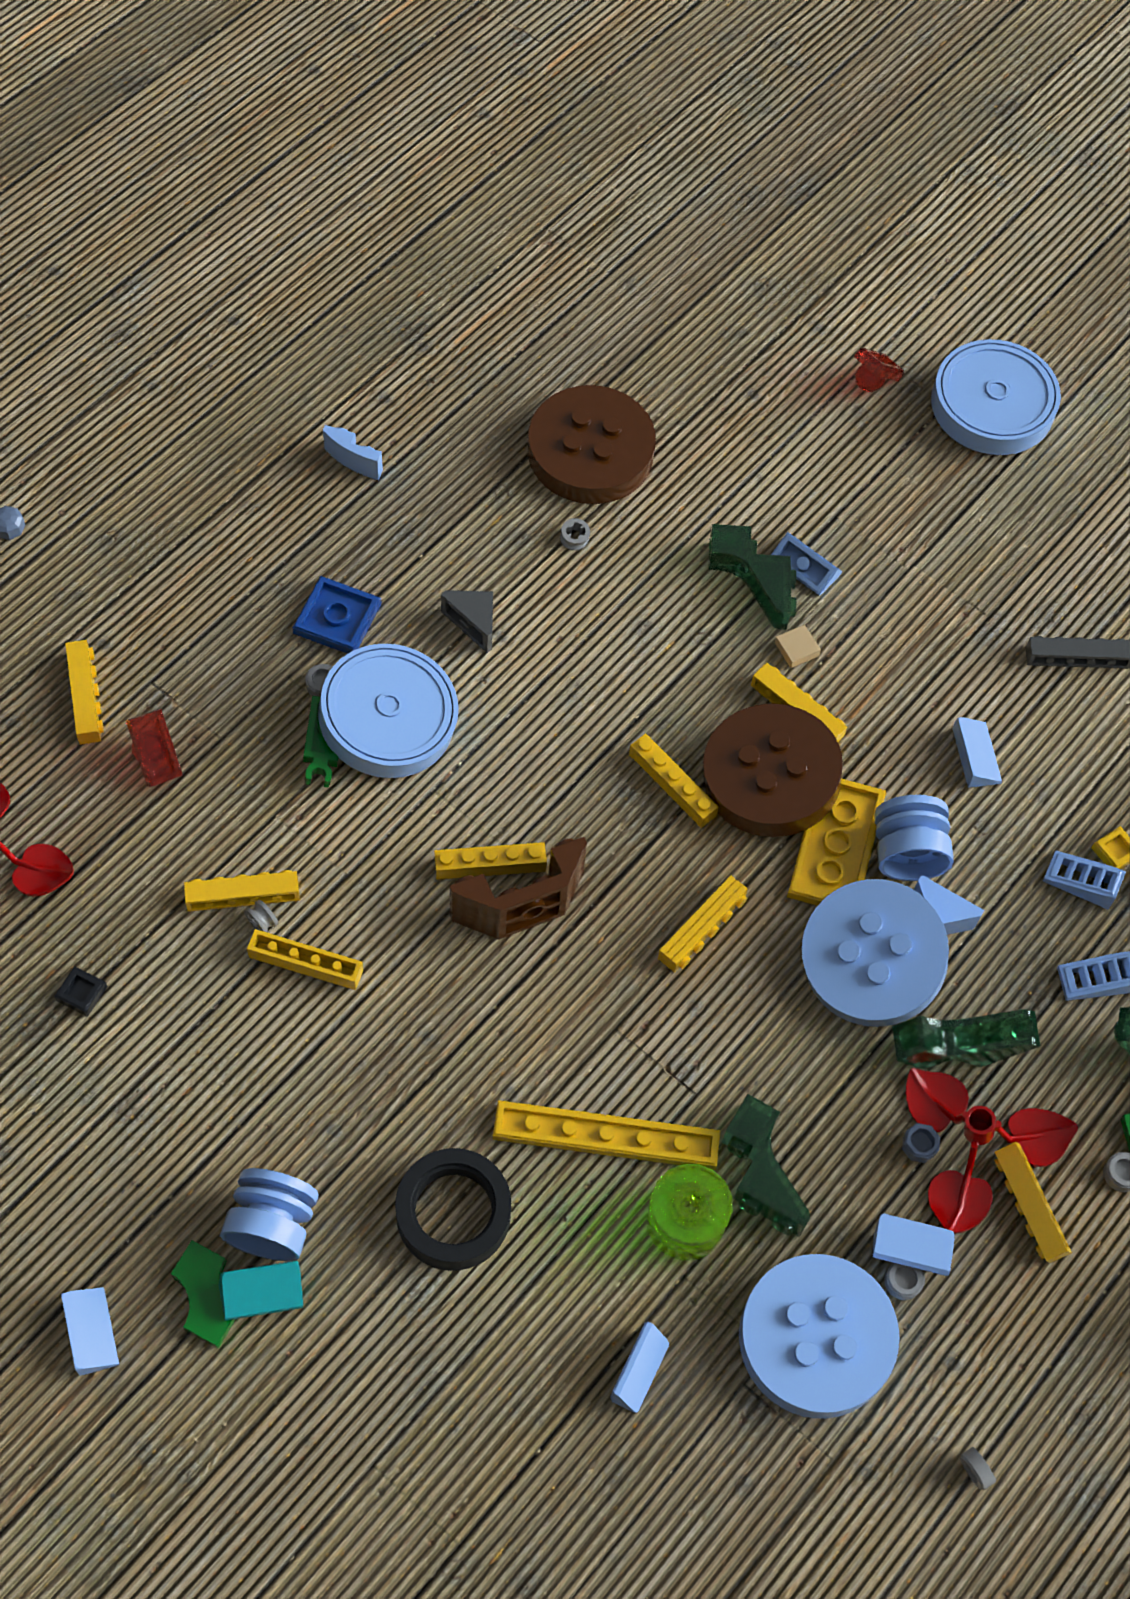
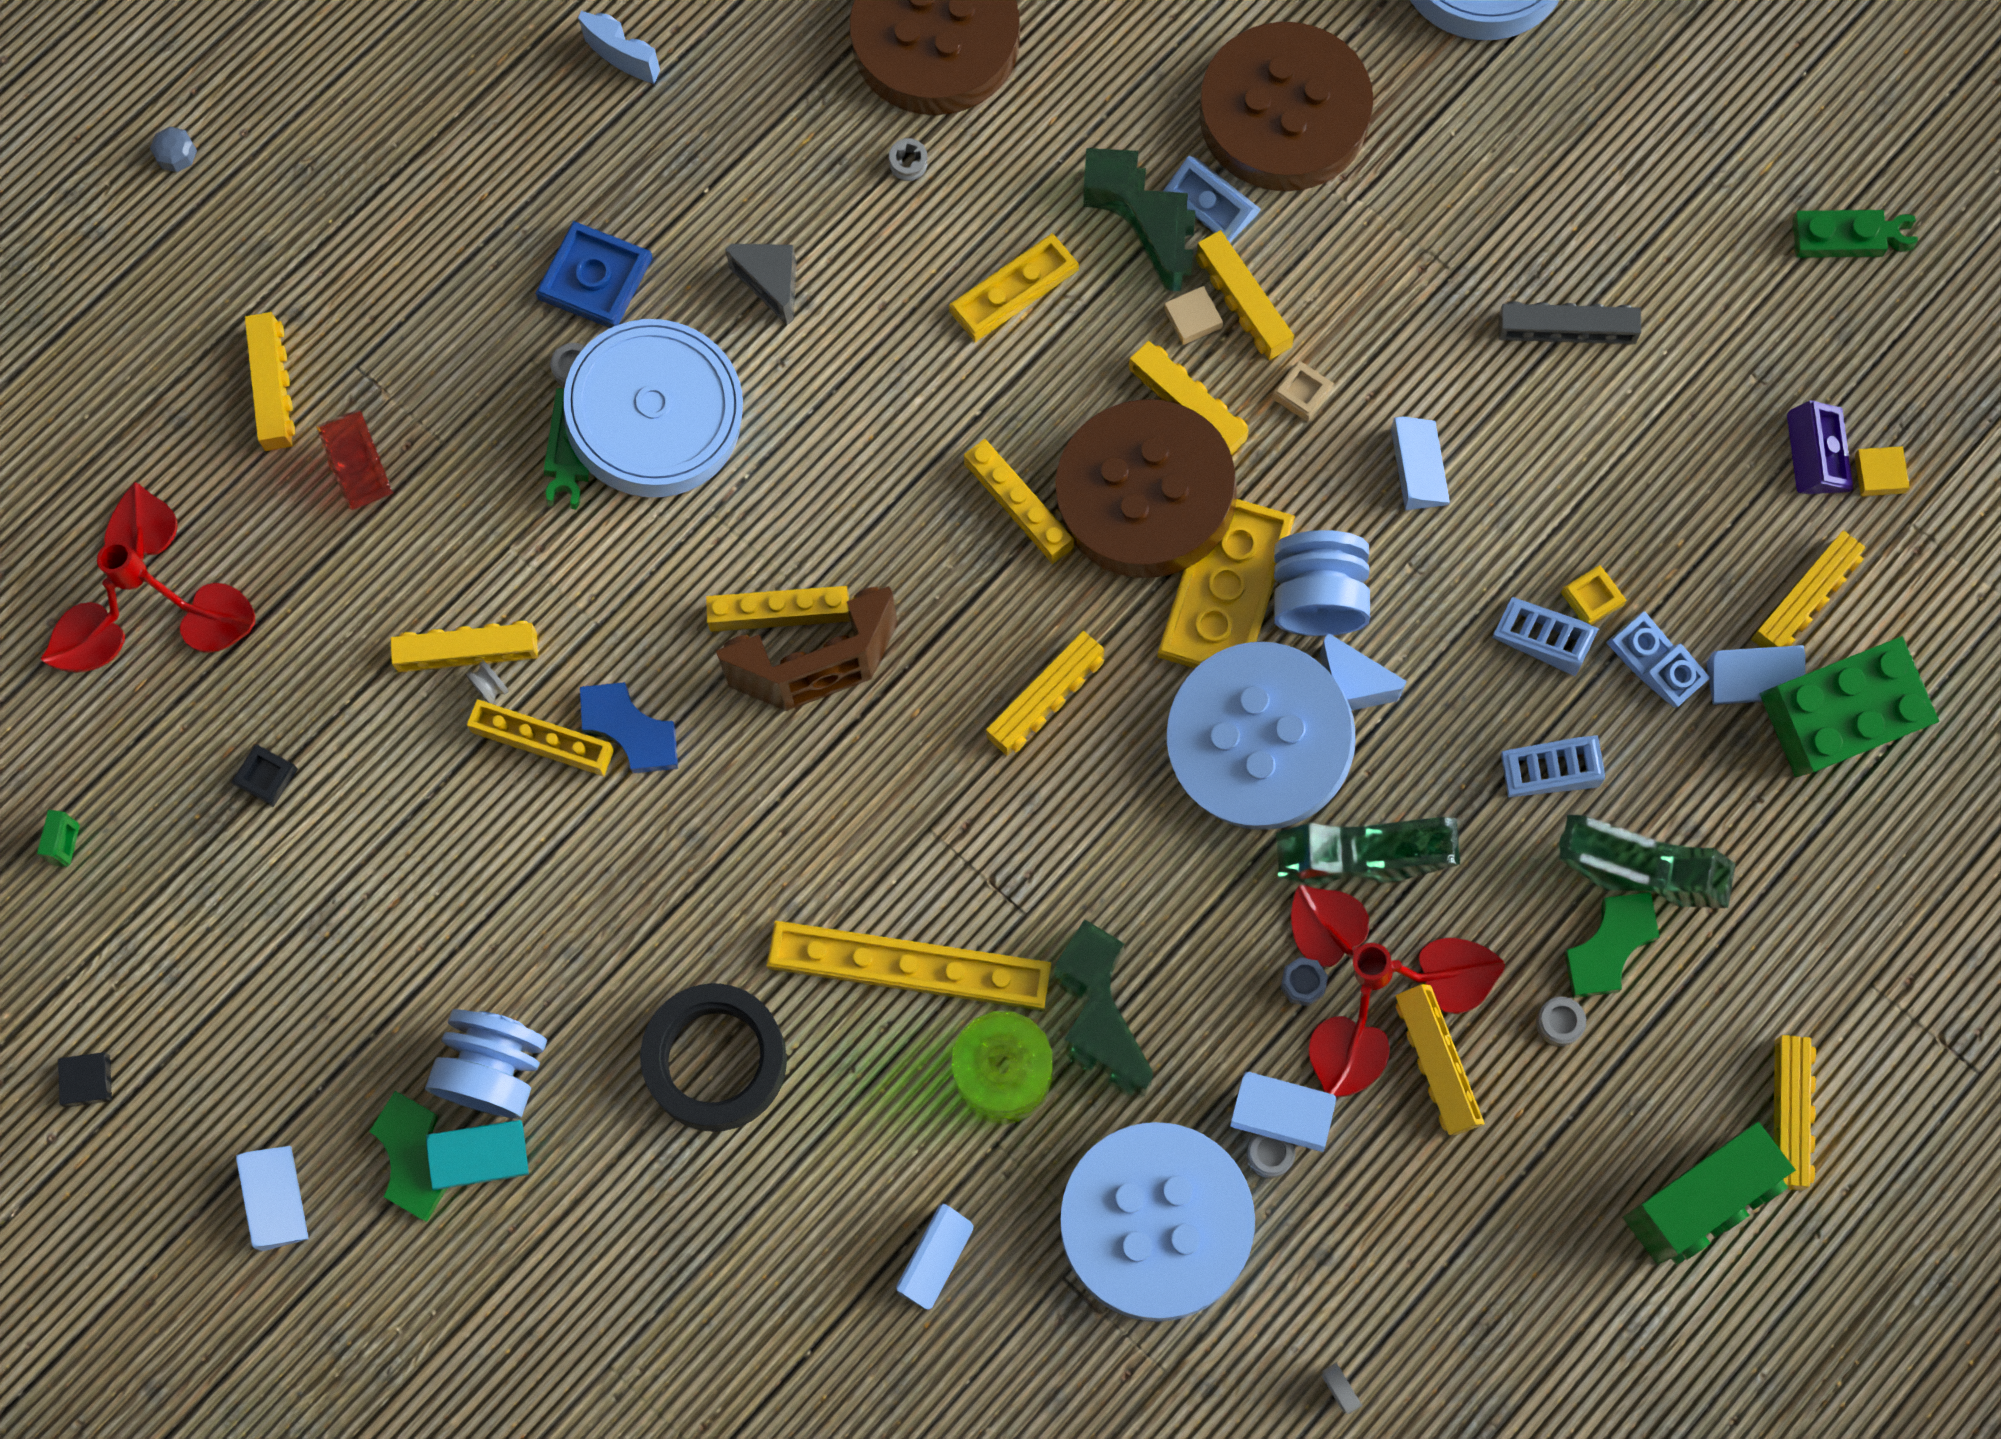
camera: 10 degrees right, 10 degrees up
(388, 962) = (611, 715): none -> blue tile
(659, 626) = (1013, 287): none -> yellow tile
(835, 631) = (1244, 295): none -> yellow piece
(856, 498) = (1285, 106): none -> reddish brown brick
(884, 700) = (1303, 391): none -> tan tile

